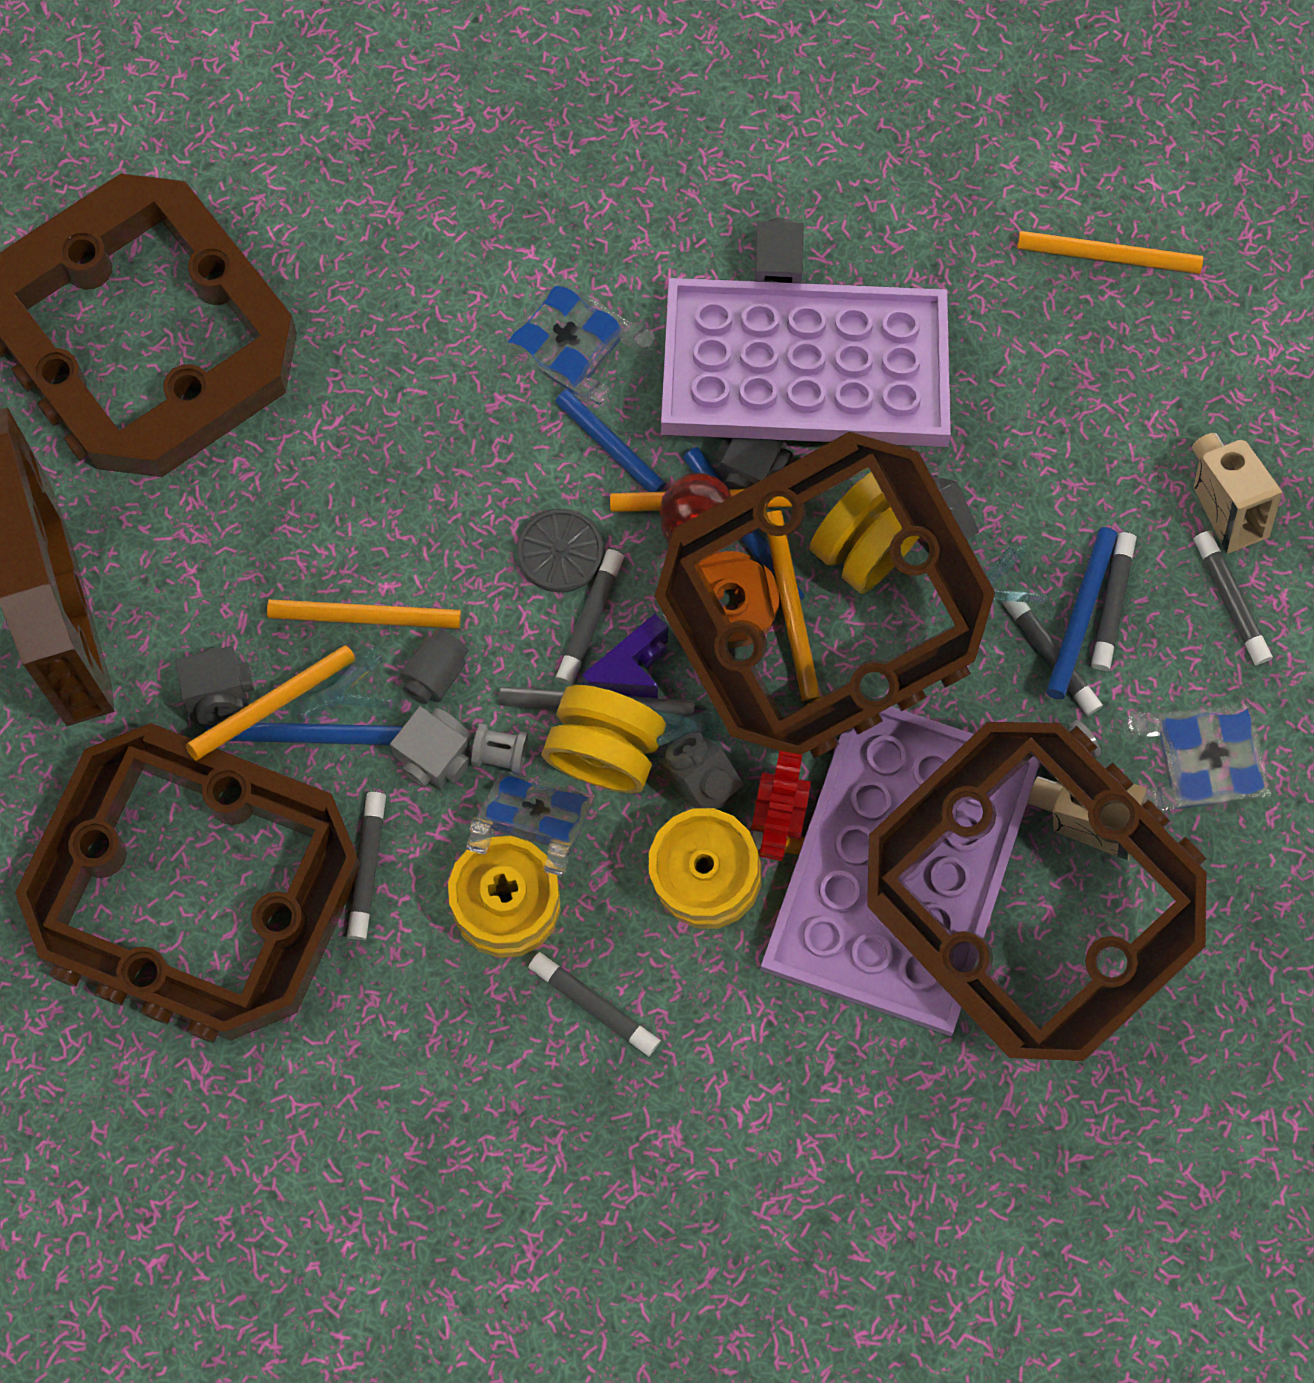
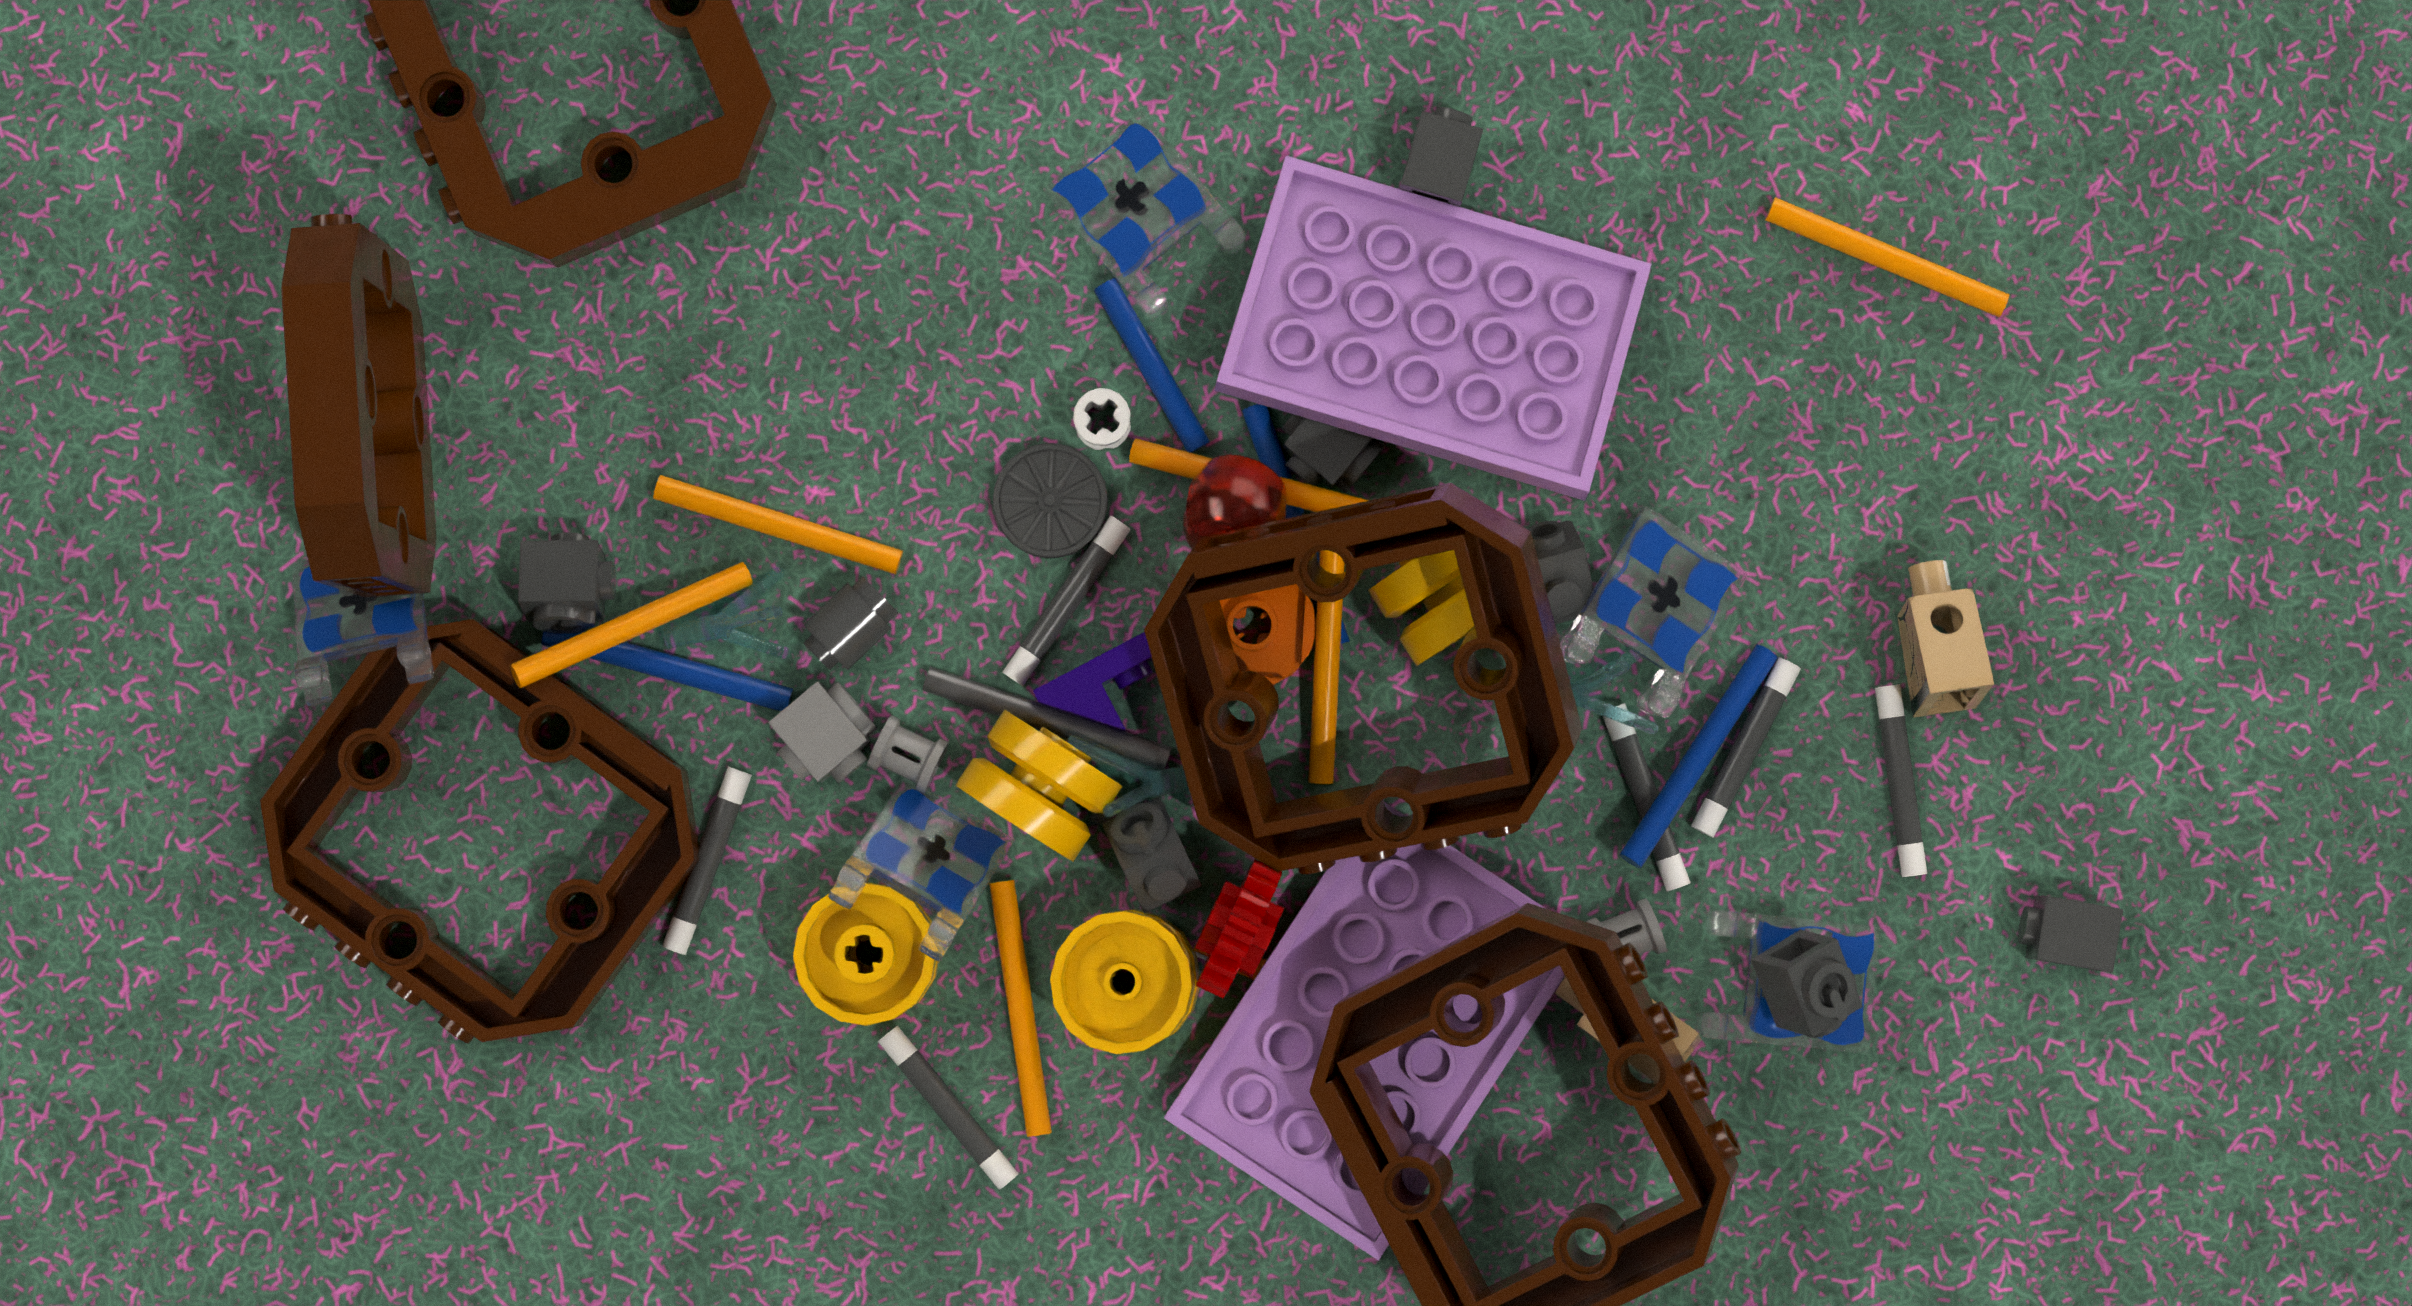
camera: 10 degrees right, 15 degrees up
(48, 745) = (344, 624): none -> clear flag
(577, 471) = (1100, 400): none -> white bush
(630, 917) = (1020, 1008): none -> light orange bar
(1022, 510) = (1660, 601): none -> clear flag
(1214, 745) = (1807, 984): none -> dark grey brick

